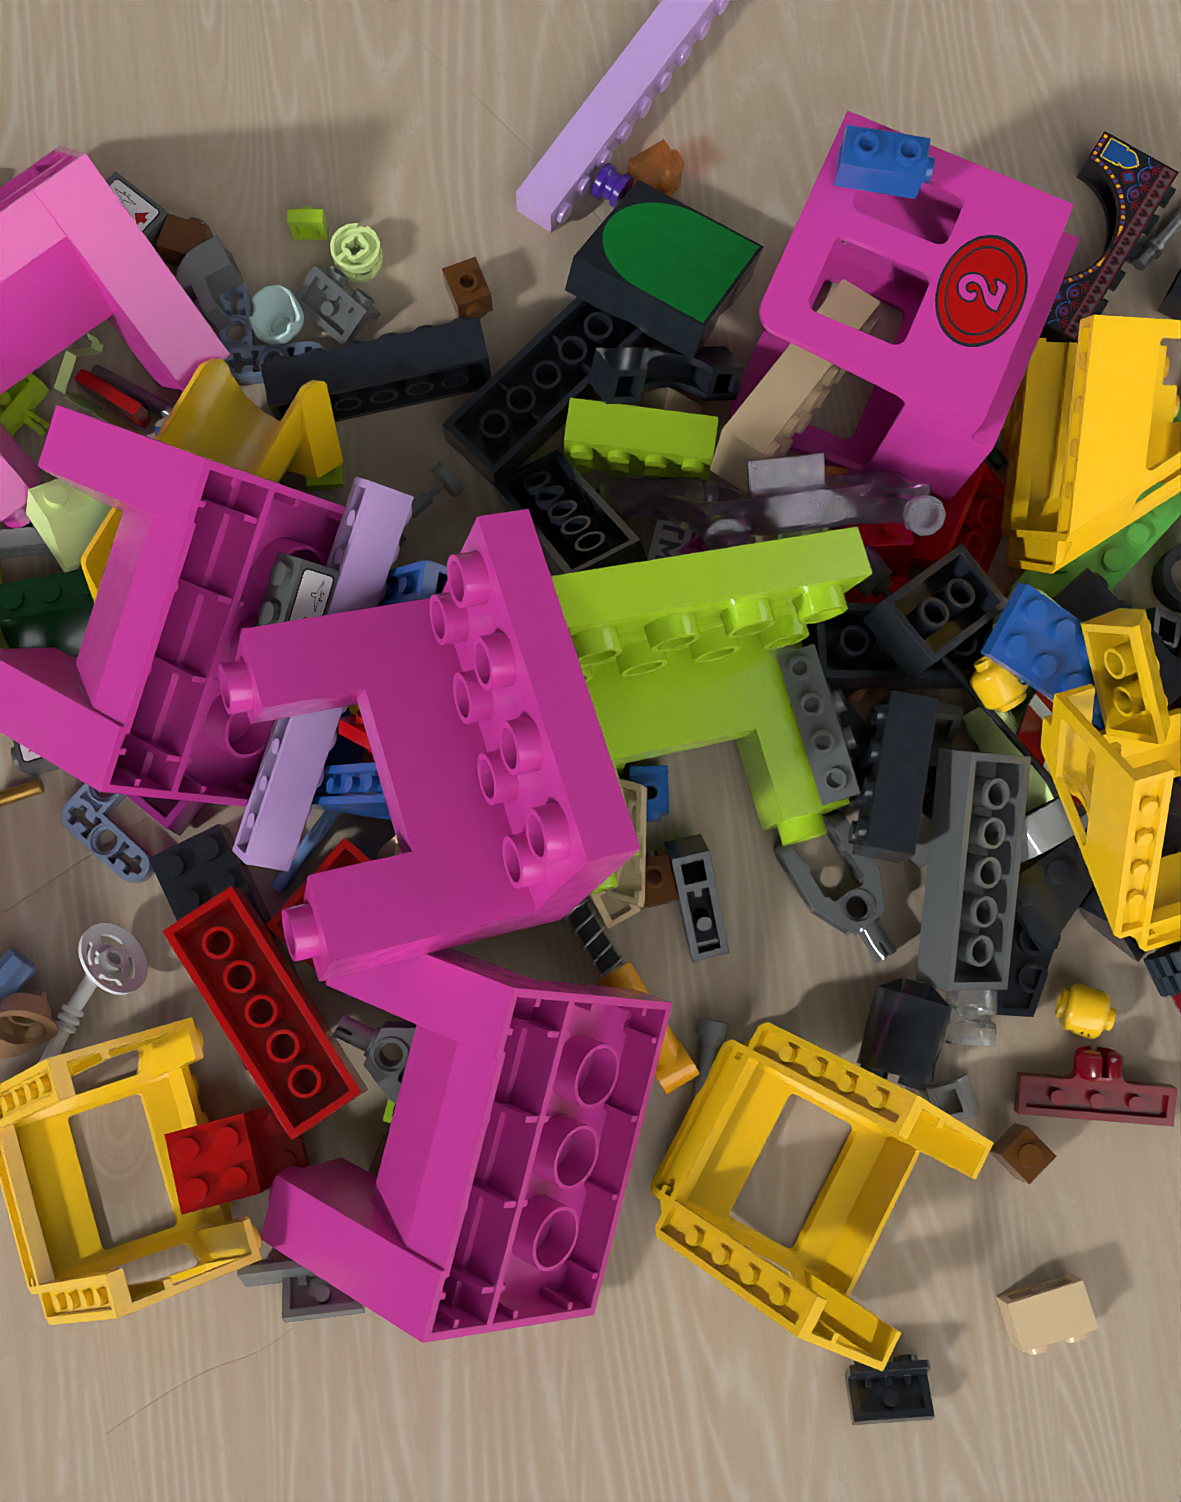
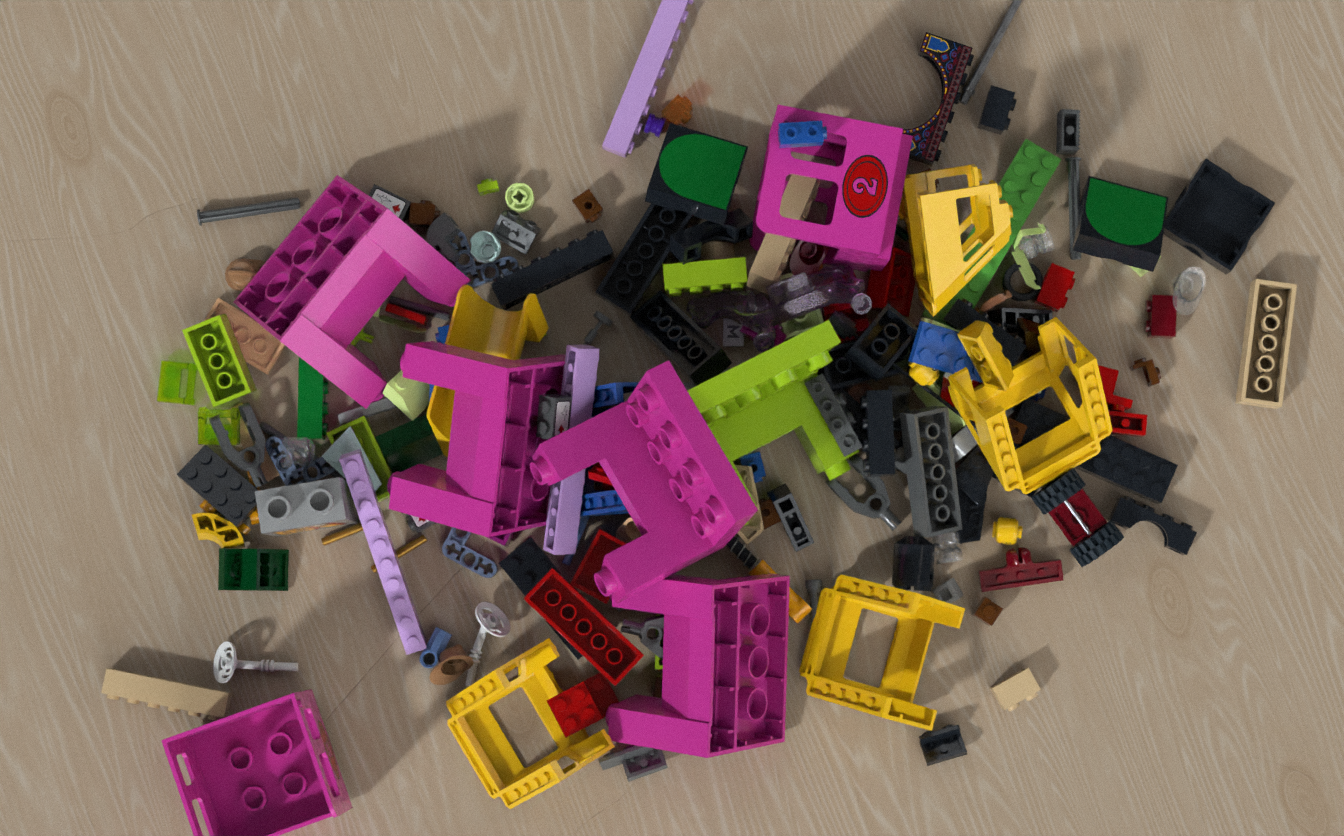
camera: 10 degrees left, 5 degrees up
(837, 432) = (807, 257): none -> dark red piece
(1149, 594) = (994, 301): none -> nougat tile

